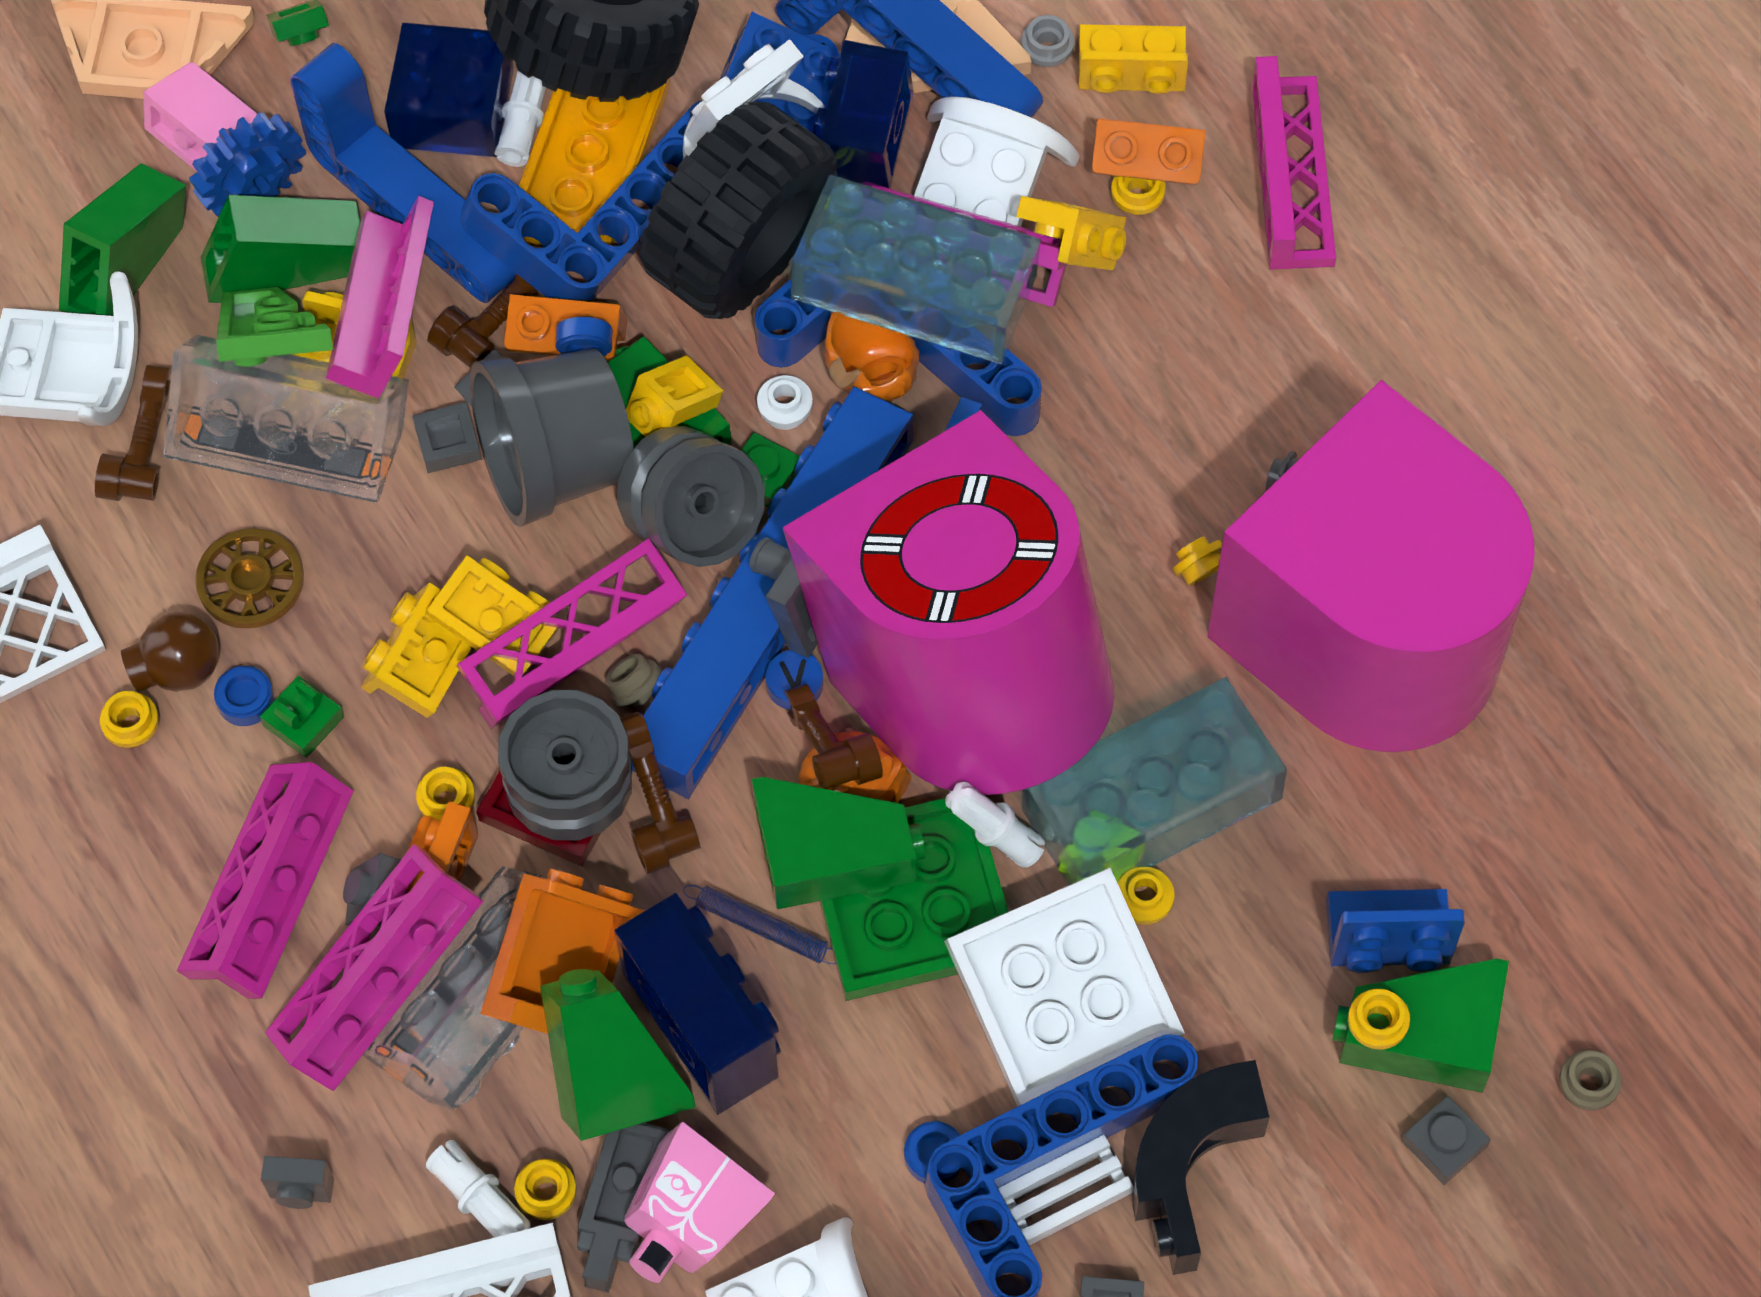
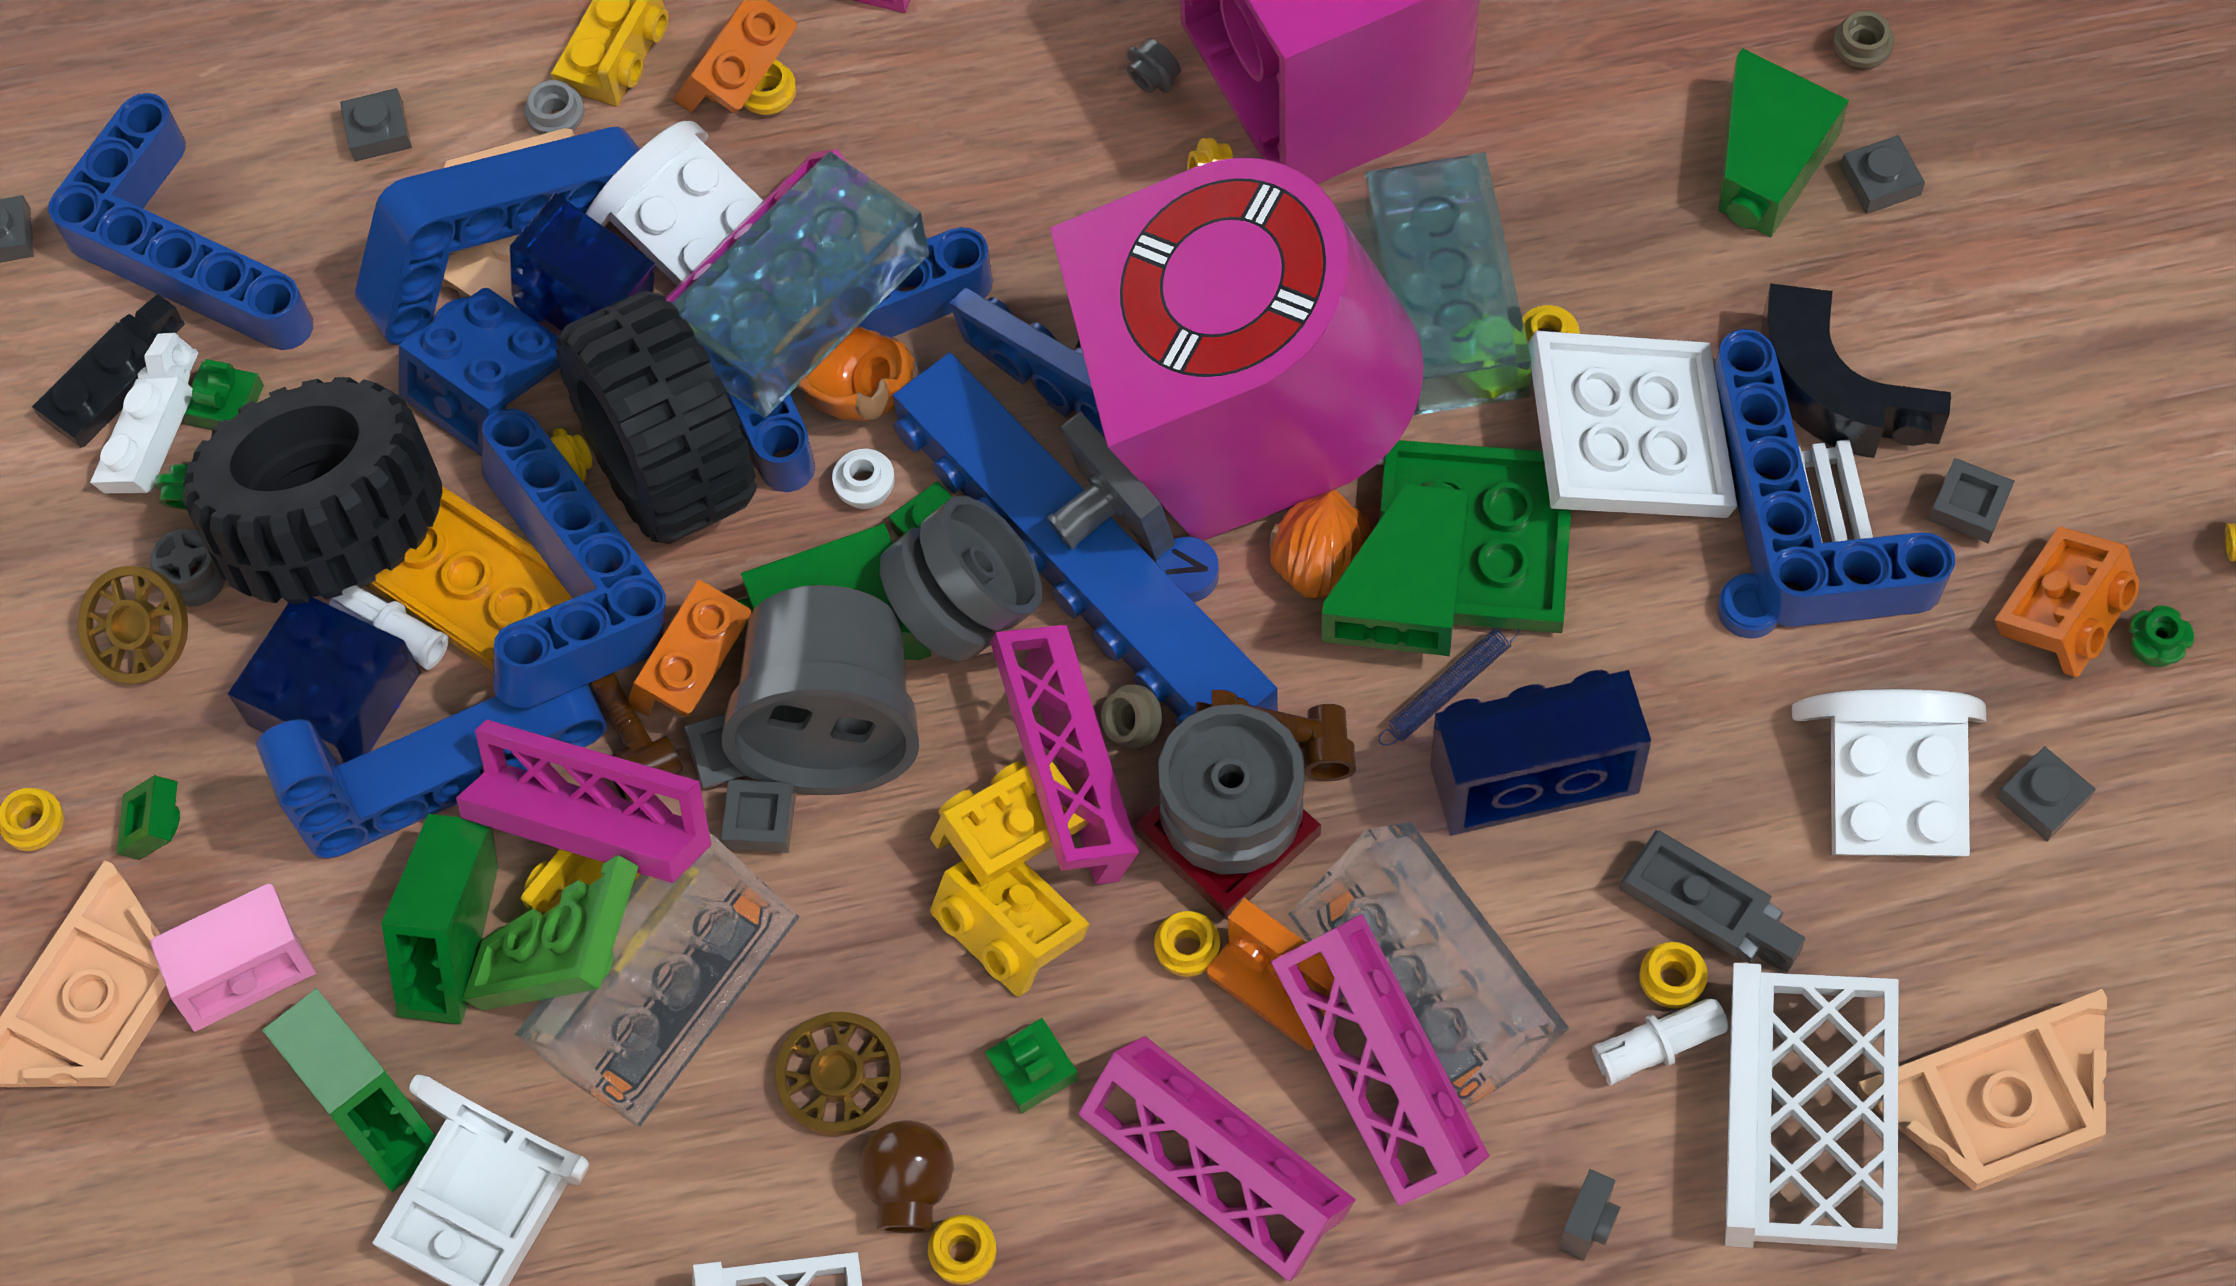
camera: 65 degrees left, 0 degrees up
(131, 474) = (652, 1164): reddish brown brick -> none
(243, 695) = (980, 1120): blue tile -> none
(248, 161) = (328, 911): blue gear -> none
(364, 882) = (1277, 1045): dark grey plate -> none
(548, 934) = (1449, 866): orange panel -> none
(583, 334) = (733, 616): blue tile -> none
(605, 1059) = (1579, 852): green slope -> none
(671, 396) = (842, 553): yellow bracket -> none
(690, 1204) = (1753, 828): bright pink torso -> none
(763, 78) = (533, 374): white piece -> none
(837, 761) = (1334, 528): reddish brown brick -> none
(995, 824) = (1440, 425): white axle -> none
(1087, 235) = (791, 142): yellow bracket -> none
(1384, 1003) = (1774, 149): yellow plate -> none
(1392, 929) = (1662, 139): blue bracket -> none

